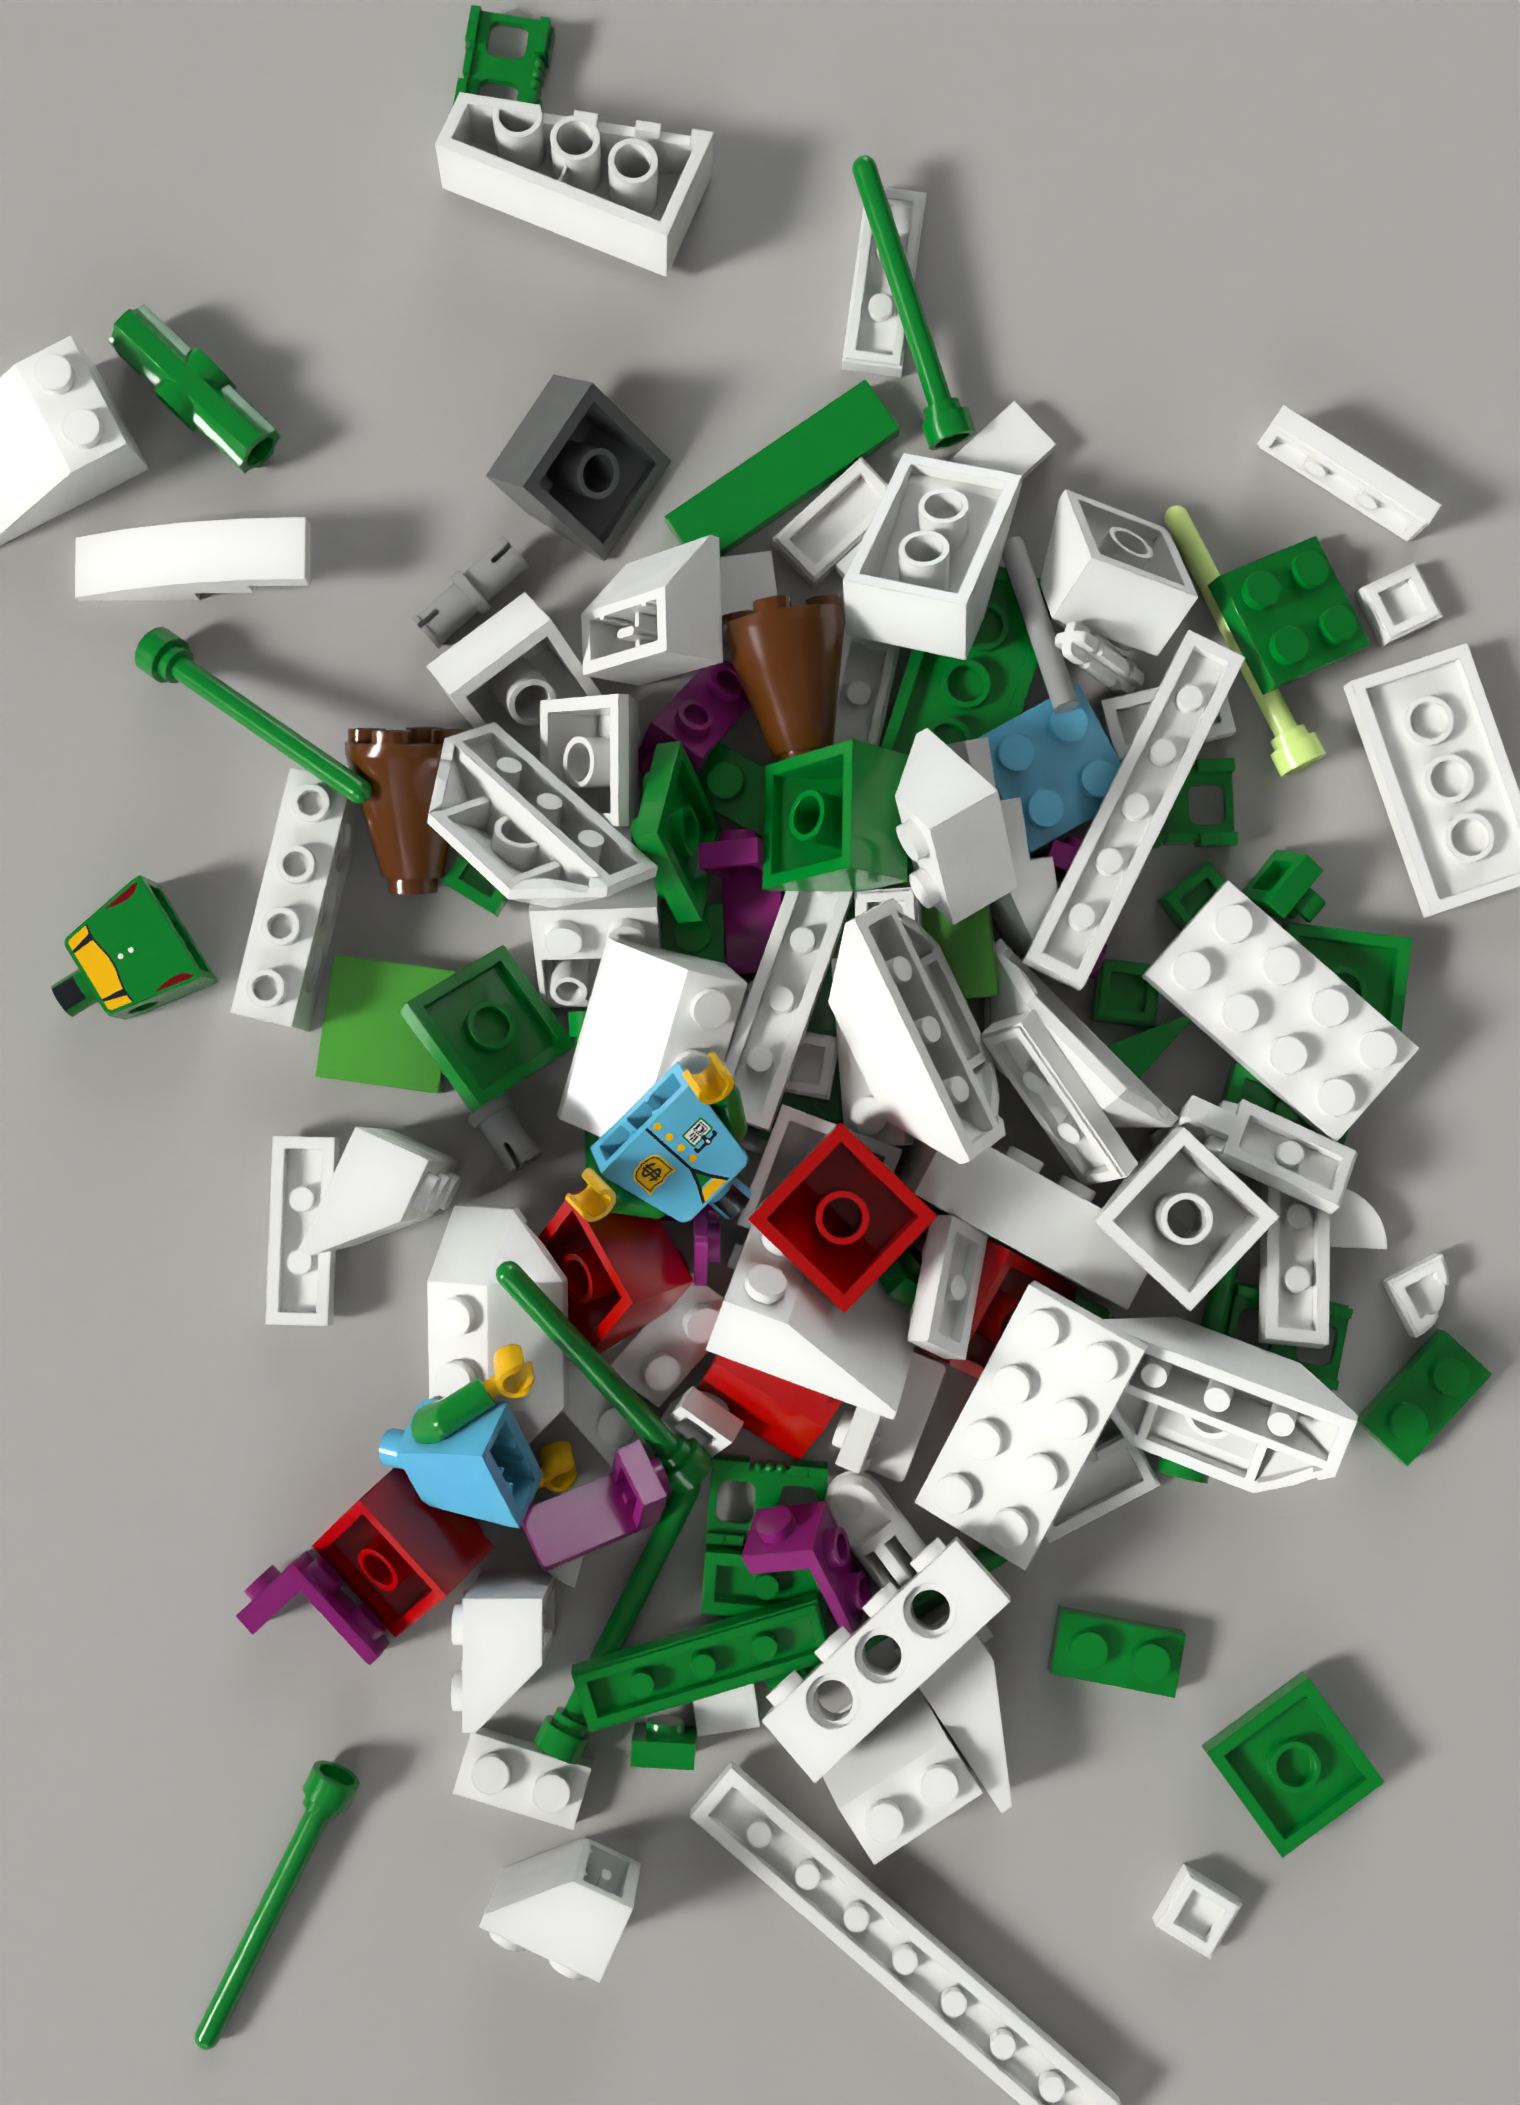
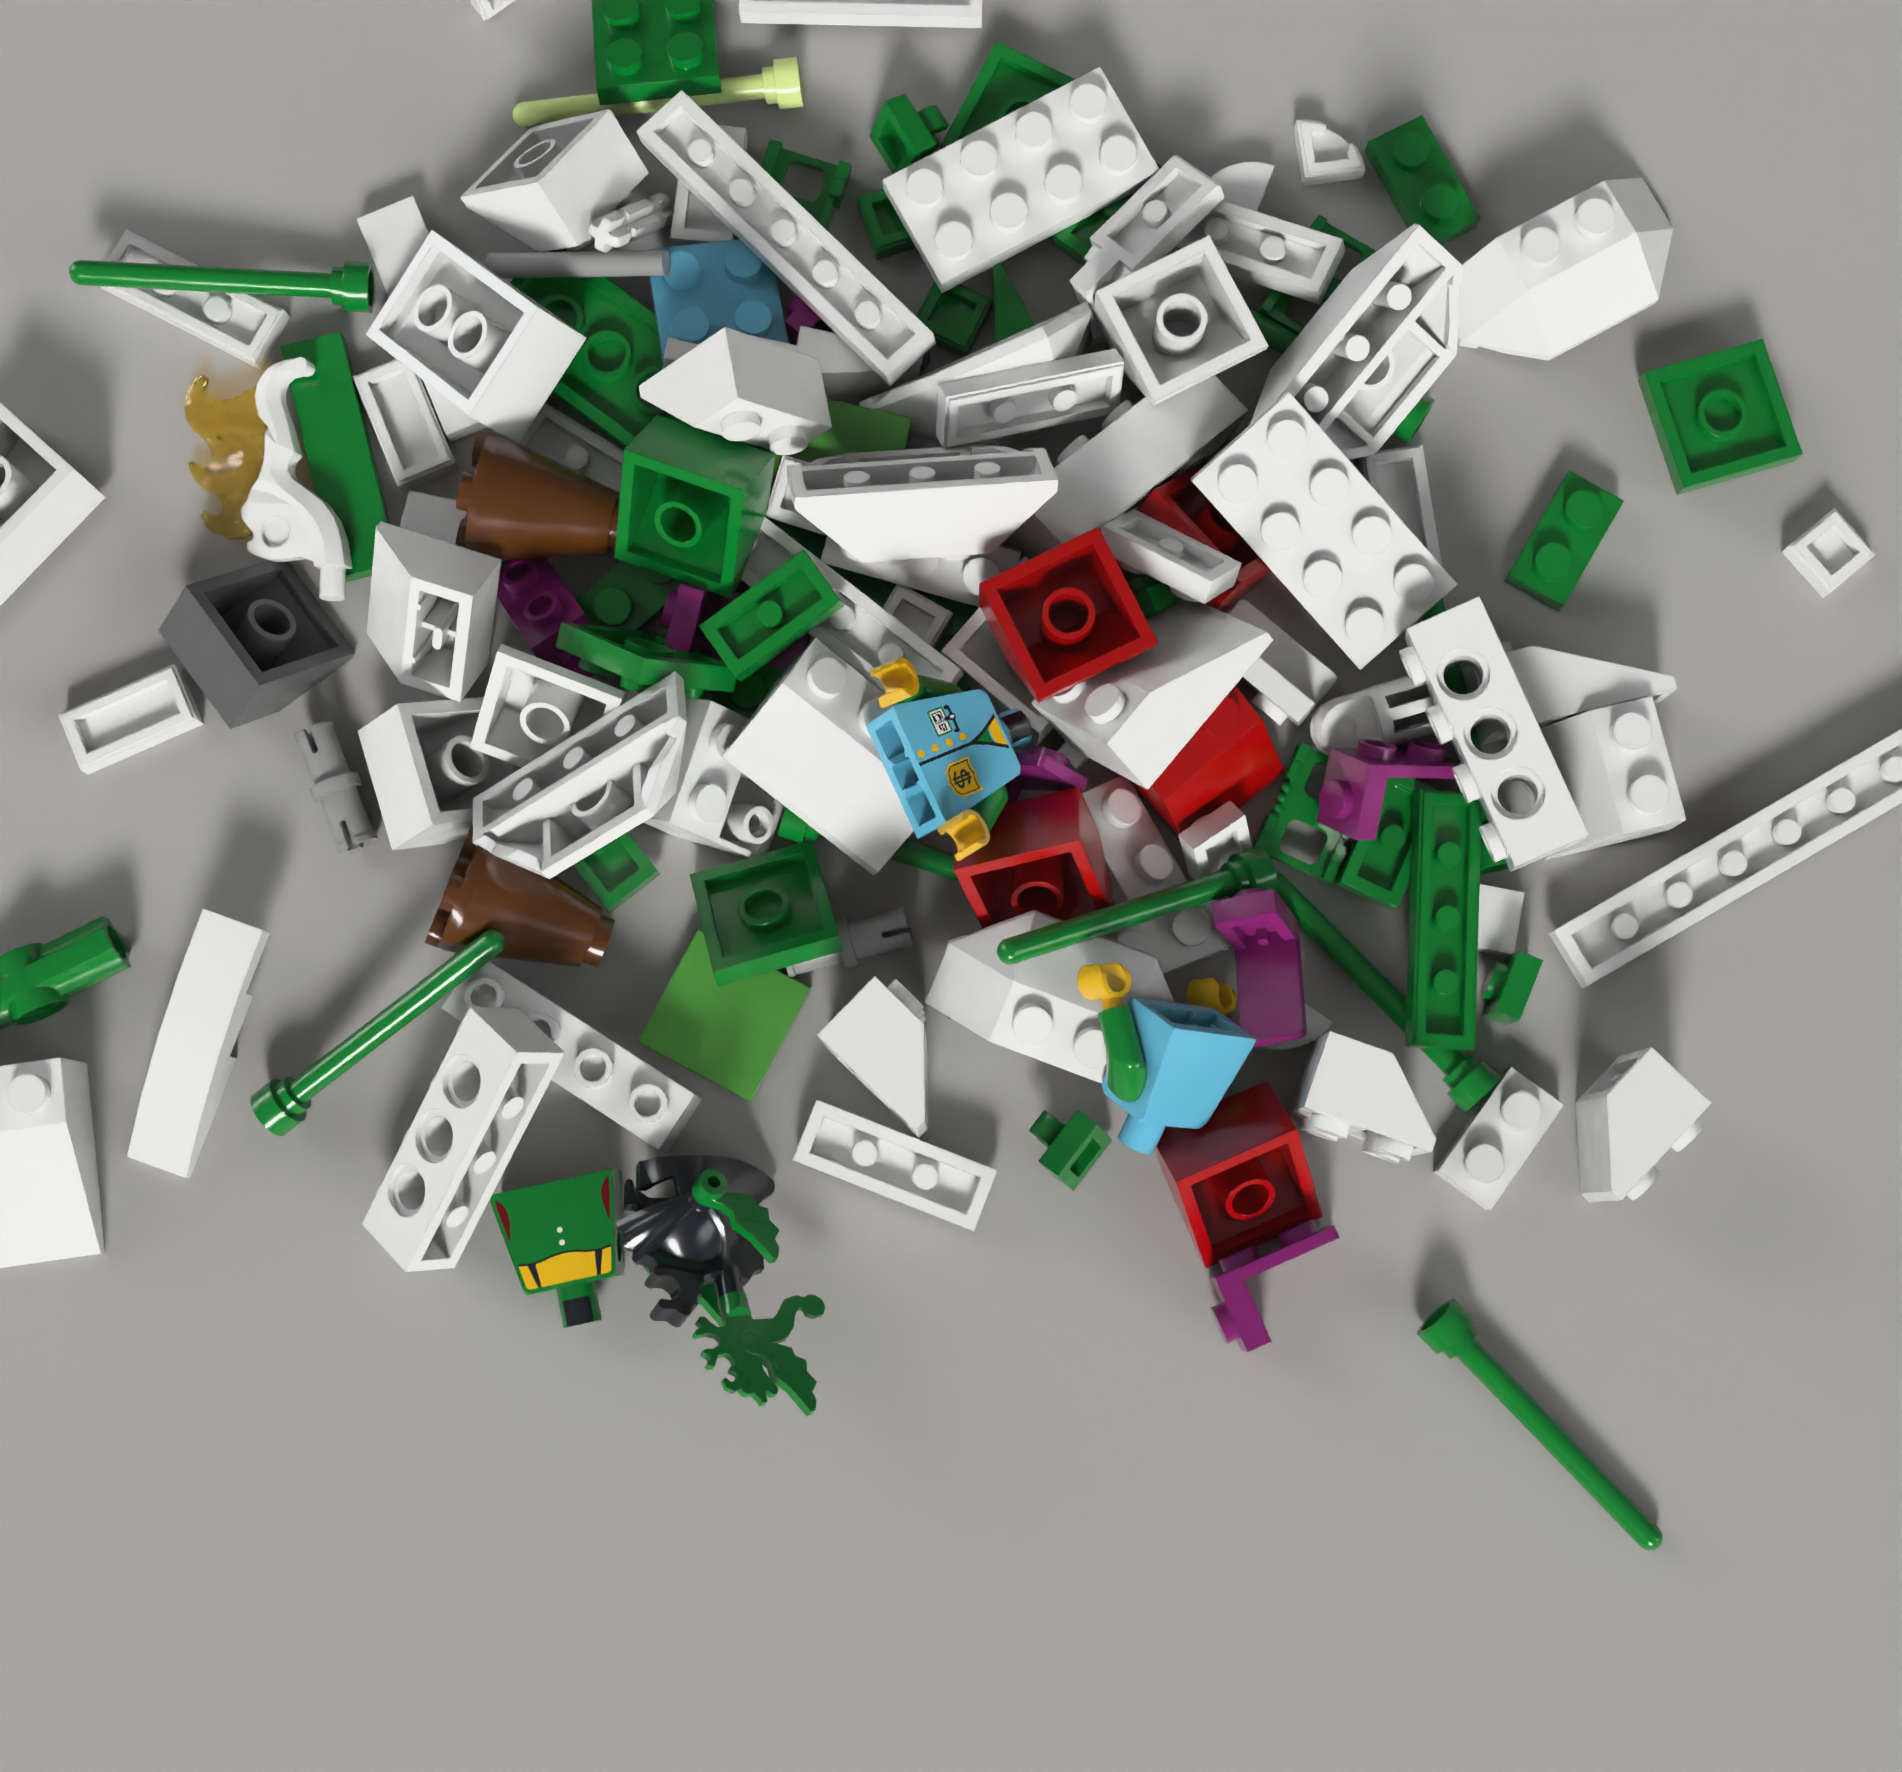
camera: 70 degrees left, 5 degrees down
(166, 1093) = (703, 1253): none -> helmet
(177, 832) = (462, 1138): none -> white brick
(375, 1384) = (1070, 1147): none -> green tile
(469, 382) = (130, 719): none -> white tile
(732, 405) = (256, 480): none -> piece
(755, 934) = (771, 615): none -> green plate
(1382, 1572) = (1566, 272): none -> white wedge

